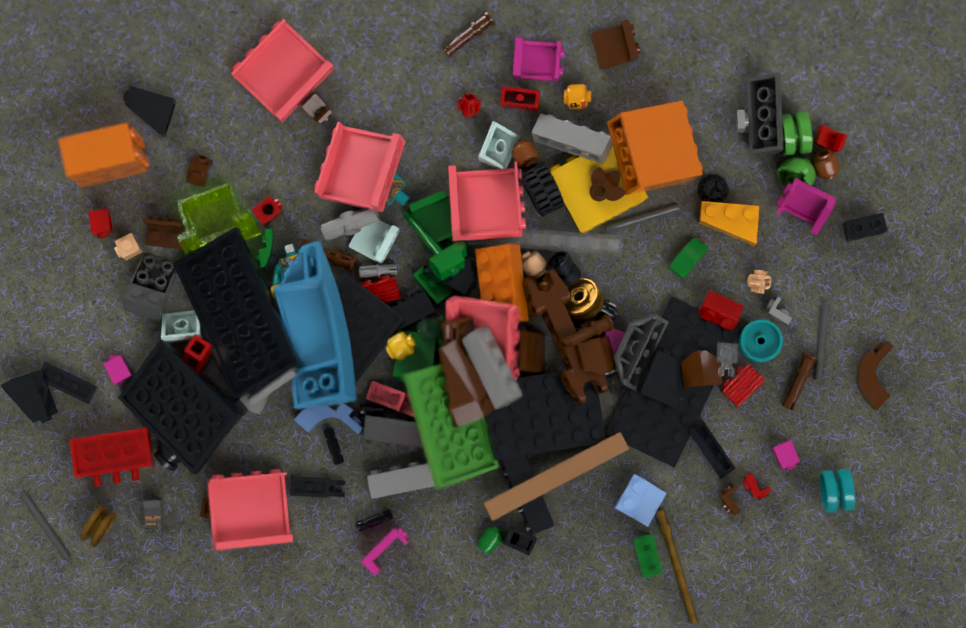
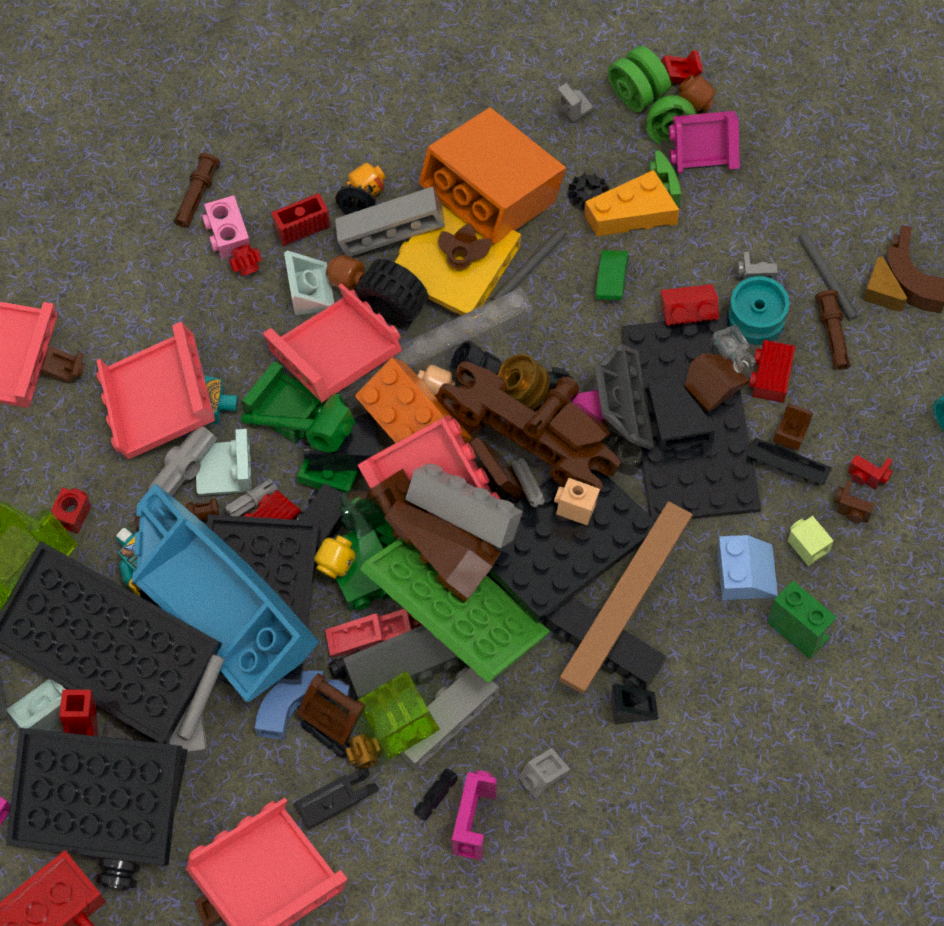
camera: 30 degrees left, 20 degrees down
(265, 254) = (95, 554): green slope -> none
(342, 437) = (328, 716): none -> reddish brown plate
(348, 470) = (363, 751): none -> pearl gold gear
(378, 466) = (399, 715): none -> clear neon green brick
(442, 547) = (543, 772): none -> light grey bracket
(475, 75) = (225, 228): none -> bright pink brick
(490, 539) = (597, 726): green brick -> none
(537, 60) = (295, 173): dark pink panel -> none
(545, 366) = (528, 482): none -> light grey axle
(562, 107) = (345, 195): none -> black gear
(564, 400) = (576, 501): none -> light nougat brick
(615, 45) = (376, 107): reddish brown bracket -> none
(666, 530) = (849, 622): pearl gold bar -> none
(688, 507) = (809, 540): none -> yellowish green brick
(728, 429) = (793, 426): none -> reddish brown bracket
(759, 281) = (710, 251): light nougat gear -> none
(765, 114) = (594, 76): dark grey slope -> none
(767, 207) = (667, 175): none -> bright green slope
(785, 455) = (879, 416): dark pink brick -> none
(849, 372) = (884, 288): none -> pearl gold slope
(864, 227) = (786, 130): black brick -> none

